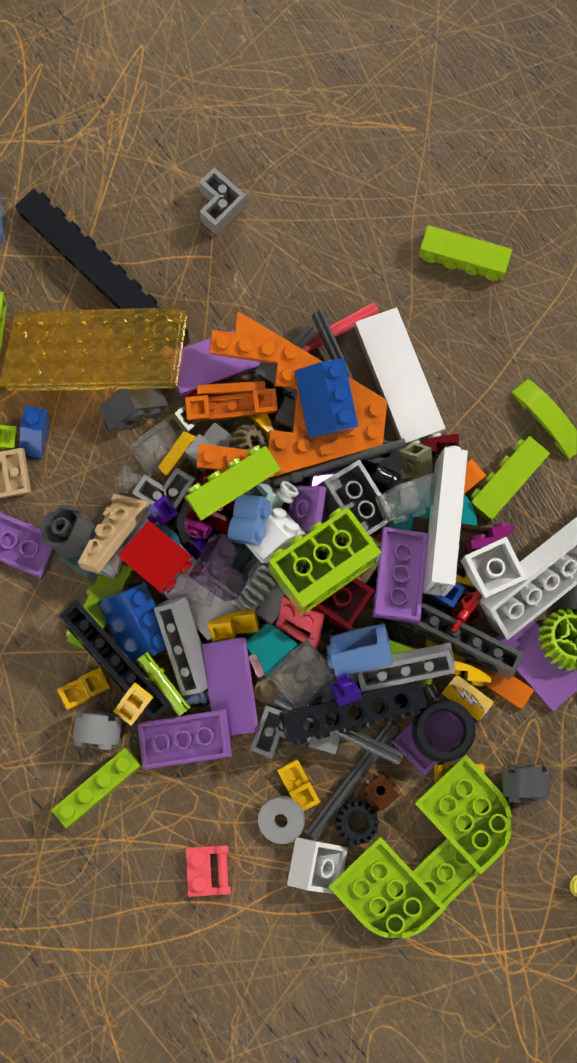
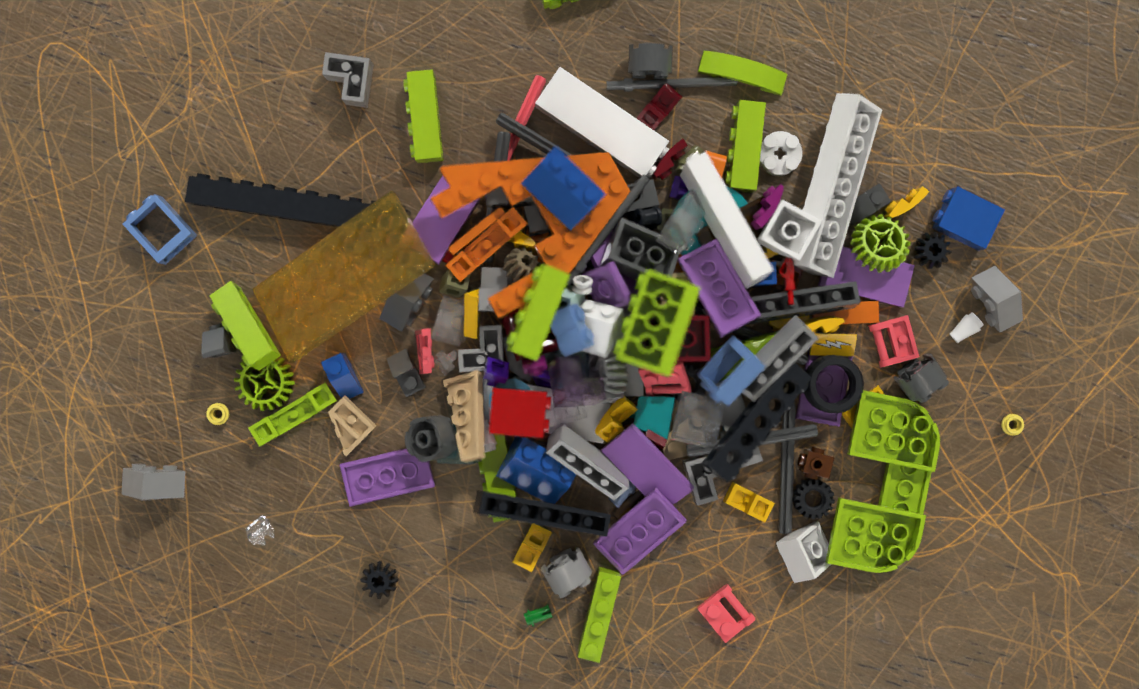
camera: 35 degrees left, 10 degrees up
(42, 750) = (537, 615): none -> green pin
(87, 467) = (405, 372): none -> dark grey slope
(121, 451) = (424, 345): none -> coral wing
(133, 704) = (584, 536): yellow slope -> none
(160, 680) = (584, 500): lime pin -> none
(257, 272) = (424, 116): none -> lime brick
(281, 833) = (757, 548): light grey tile -> none
(345, 690) = (742, 412): dark purple tile -> none
(416, 460) = (667, 189): olive brick -> none
(445, 363) = (630, 84): none -> dark grey bar
(458, 398) = (659, 107): none -> dark red slope
(475, 353) = (650, 60): none -> dark grey brick
(521, 507) = (791, 159): none -> white plate
(531, 738) = (901, 340): none -> coral plate

